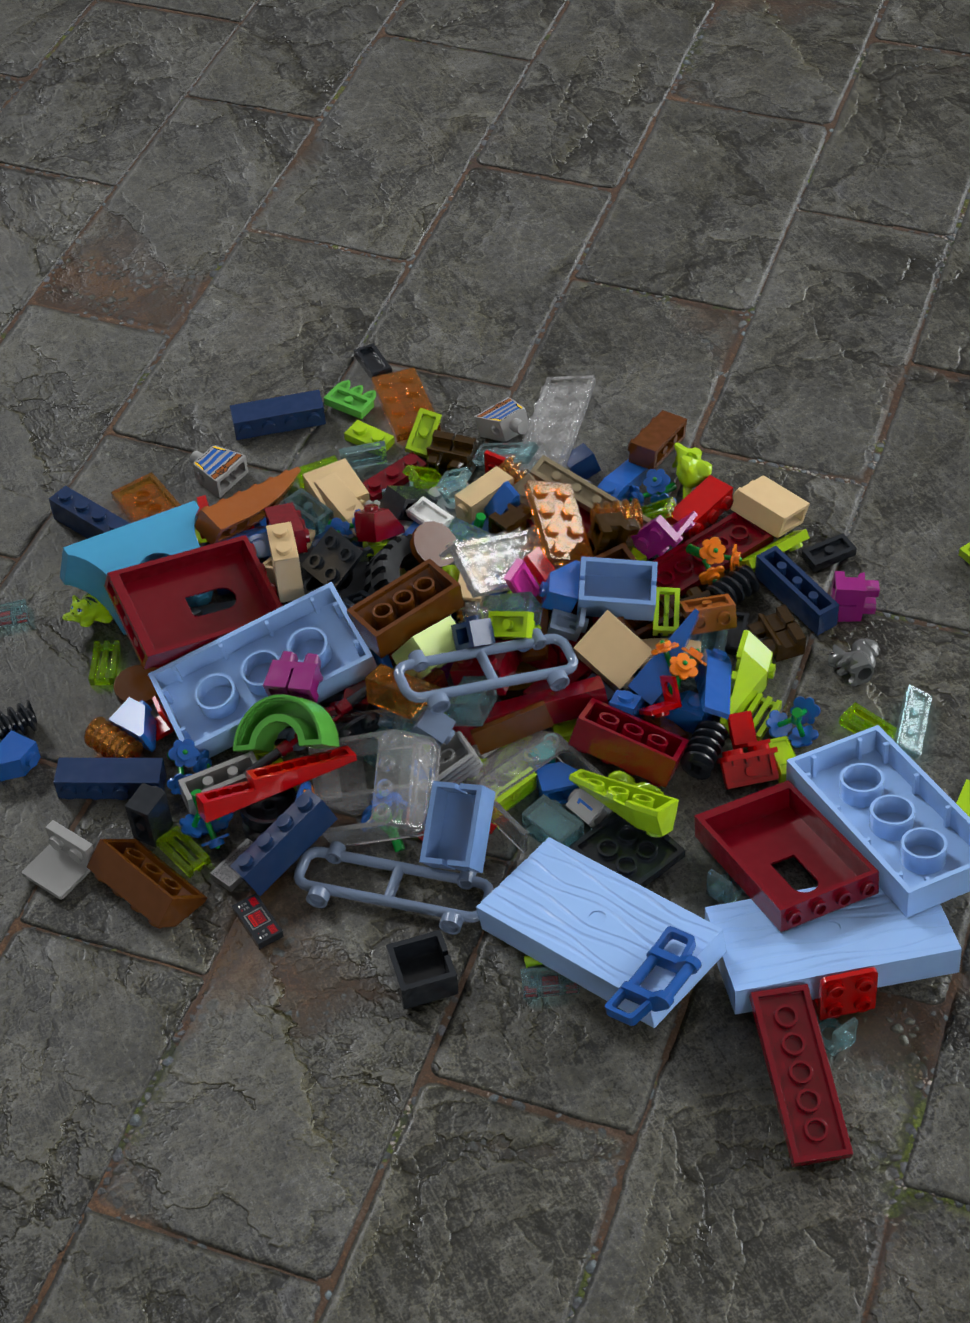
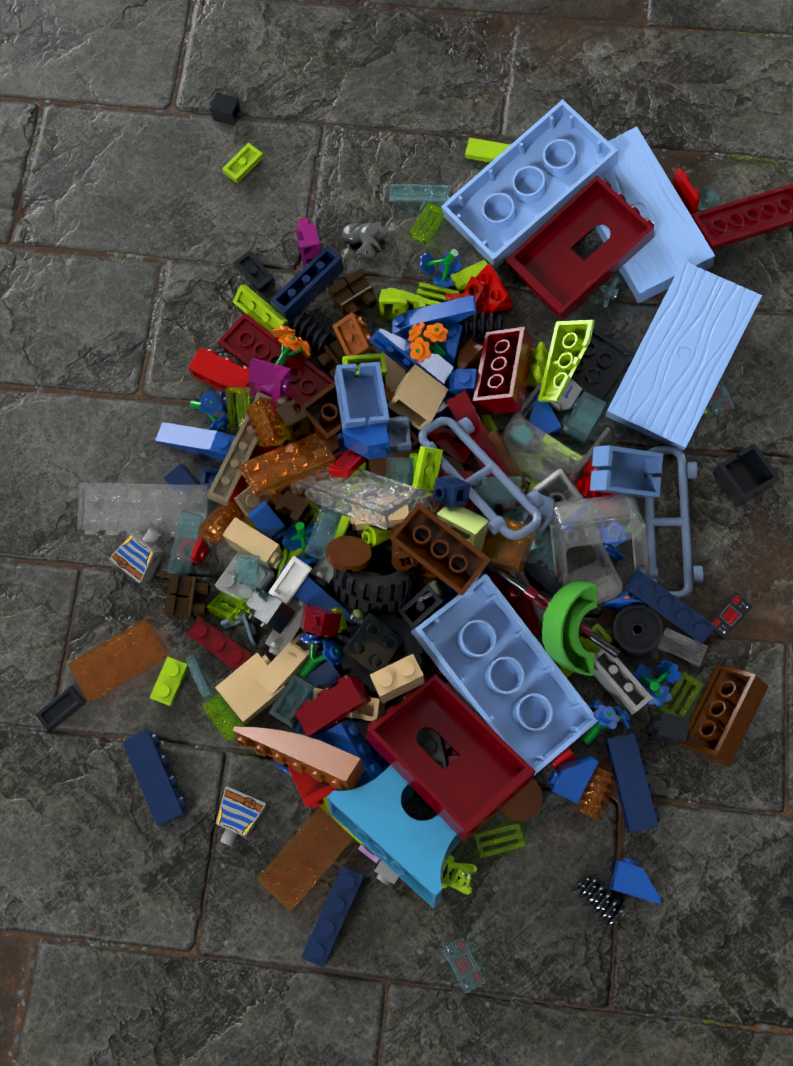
camera: 100 degrees left, 25 degrees up
(61, 863) = (728, 794): light grey bracket -> none
(269, 781) = (629, 629): red slope -> none
(294, 677) = (522, 622): magenta hips -> none
(350, 400) = (122, 713): bright green plate -> none
(422, 432) = (164, 627): lime plate -> none
(521, 579) = (378, 468): dark pink tile -> none
(657, 440) = (146, 420): reddish brown brick -> none
(662, 999) = (739, 303): blue bar -> none
(671, 701) = (456, 353): red bracket -> none
(690, 468) = (180, 386): lime animal -> none
(769, 506) = (216, 317): tan brick -> none

